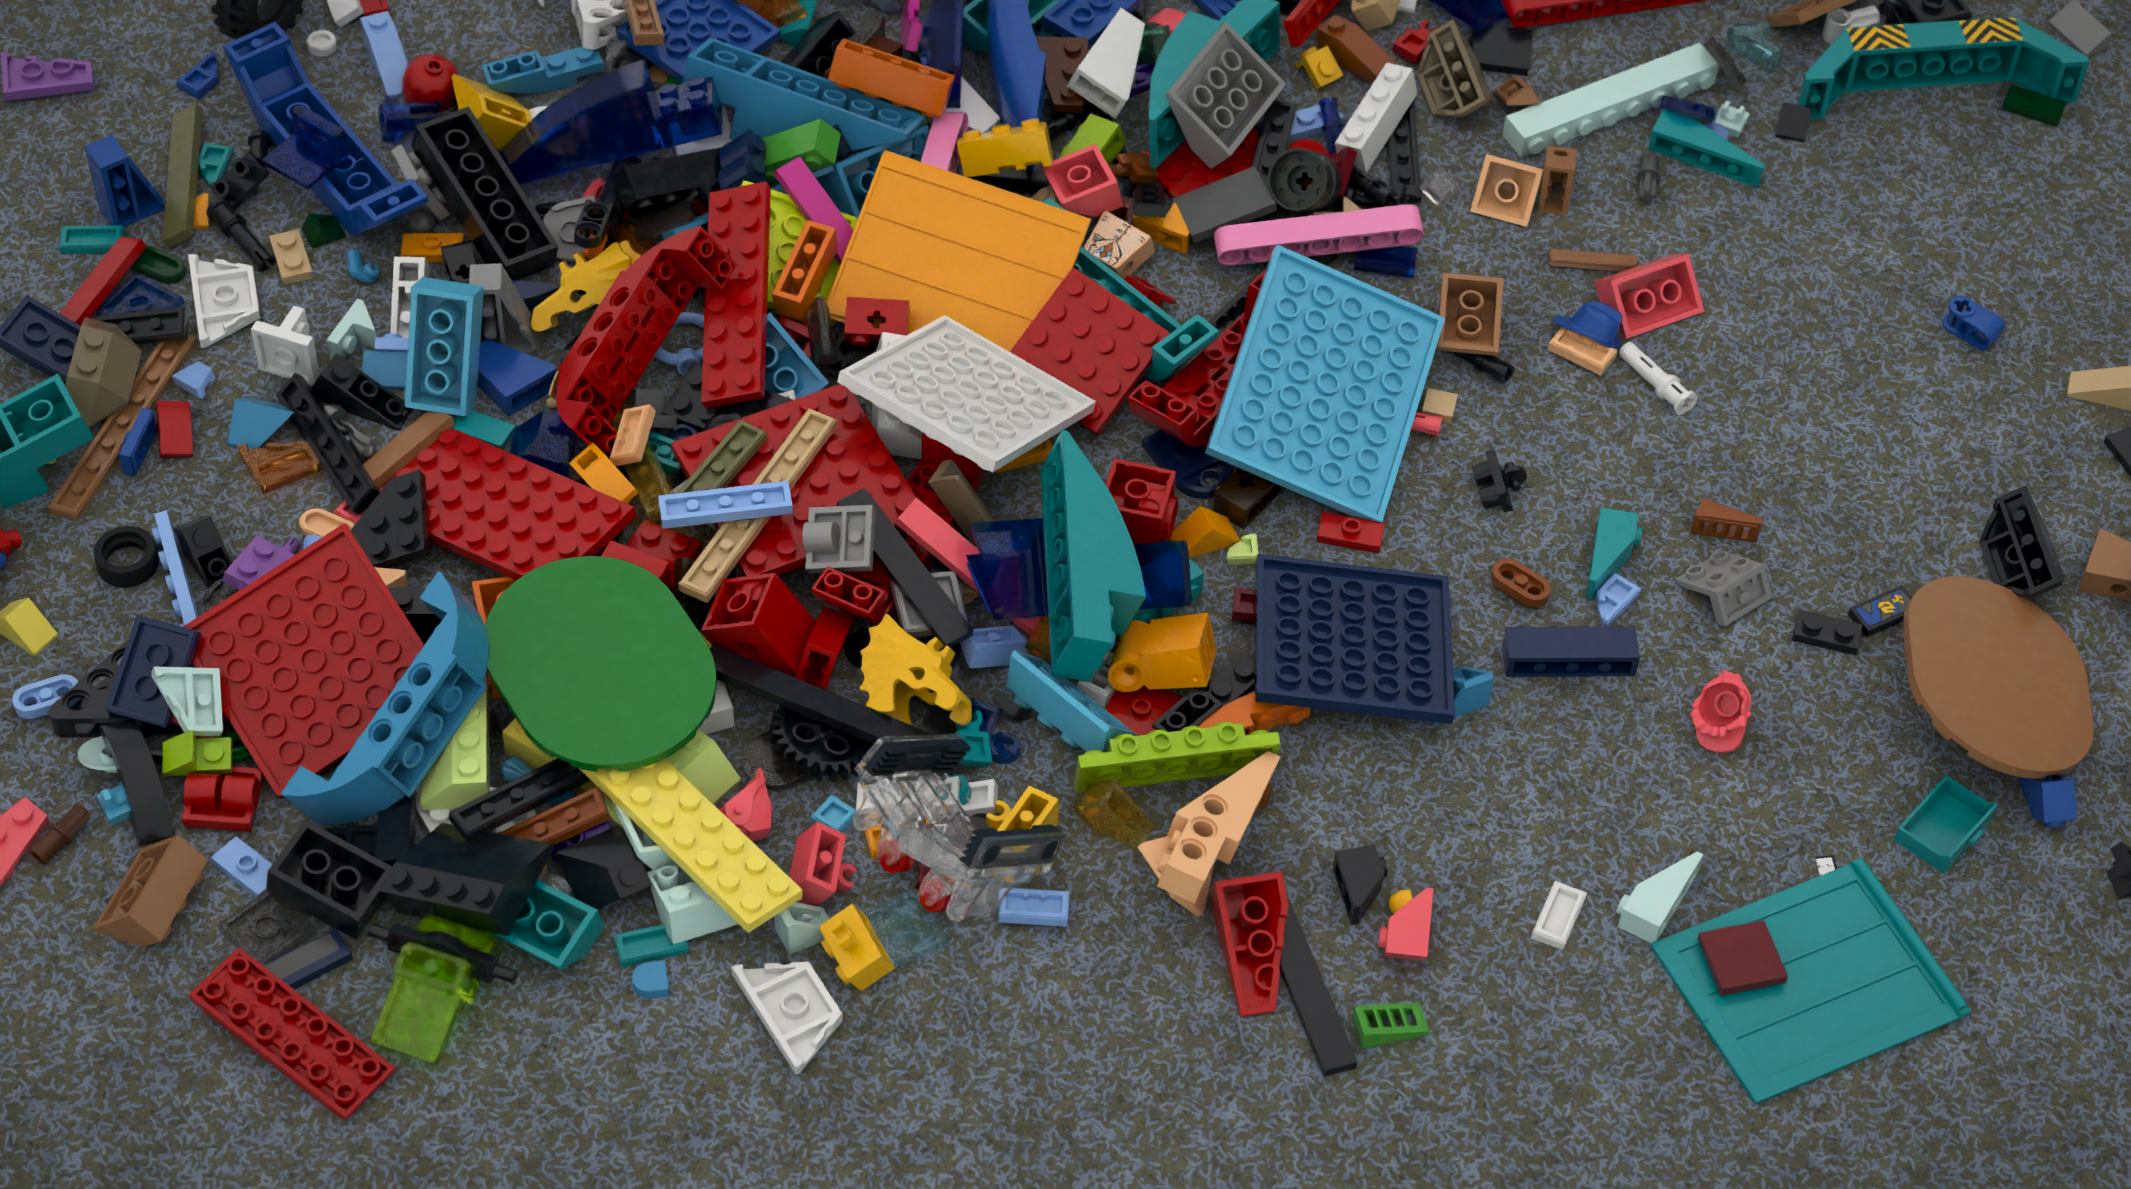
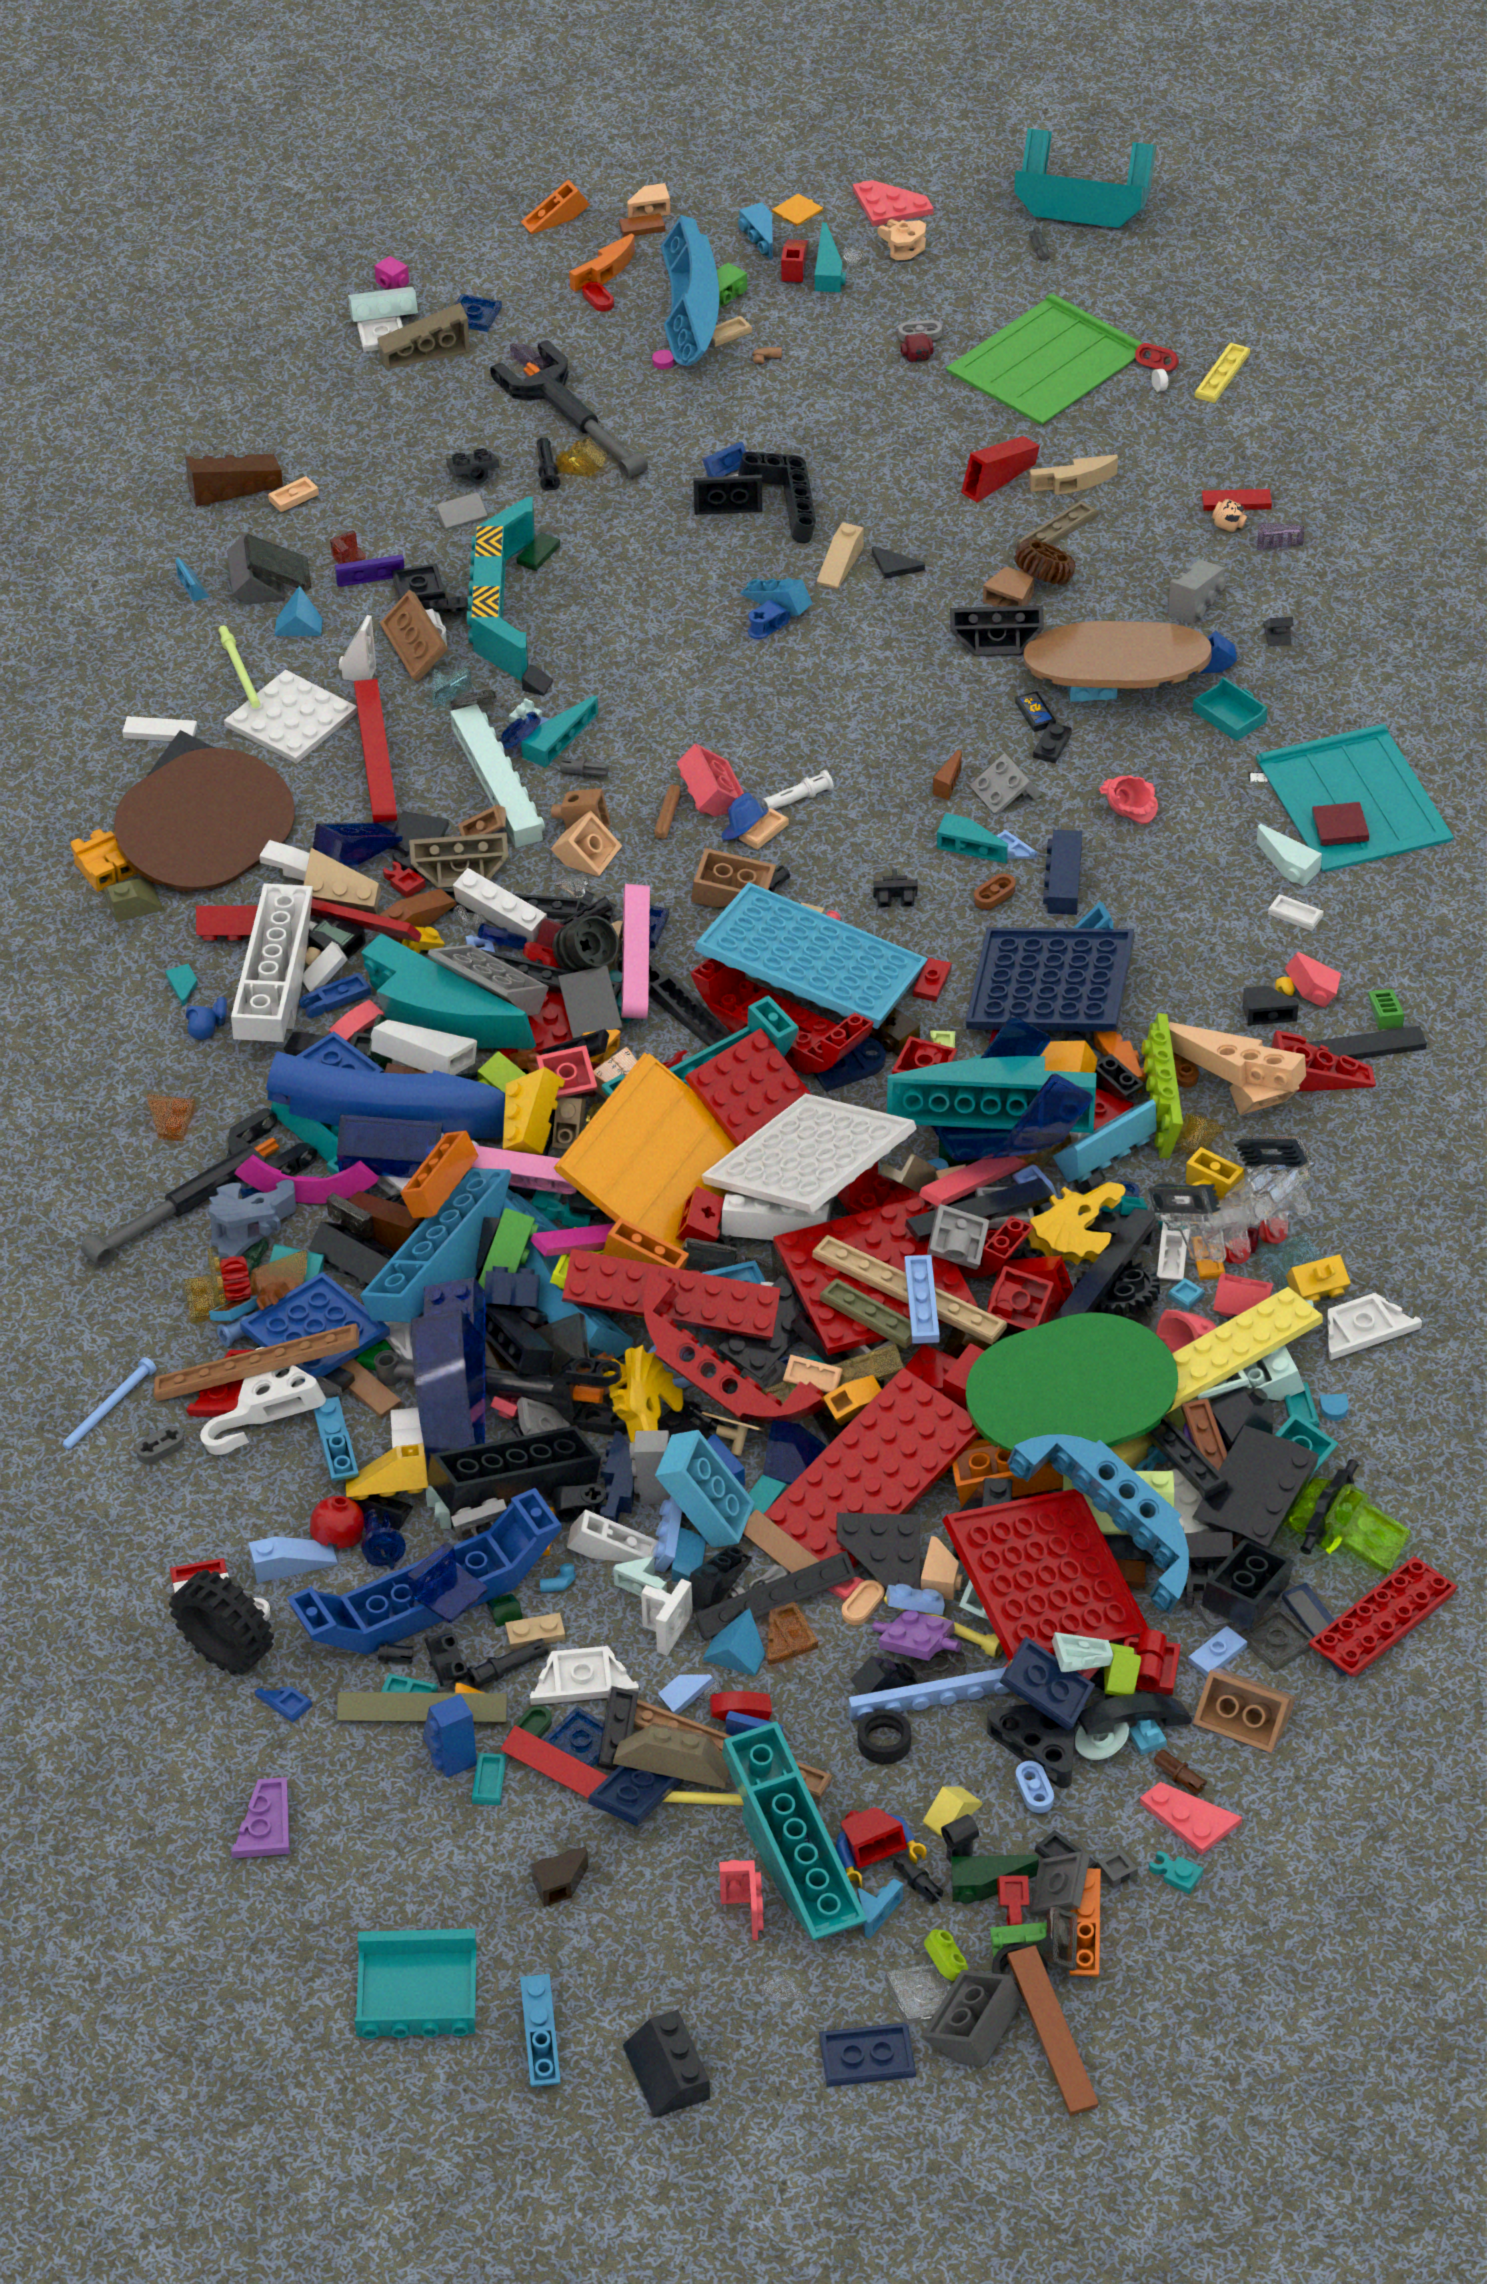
camera: 80 degrees left, 5 degrees down
(2021, 331) = (787, 593): none -> dark azure slope

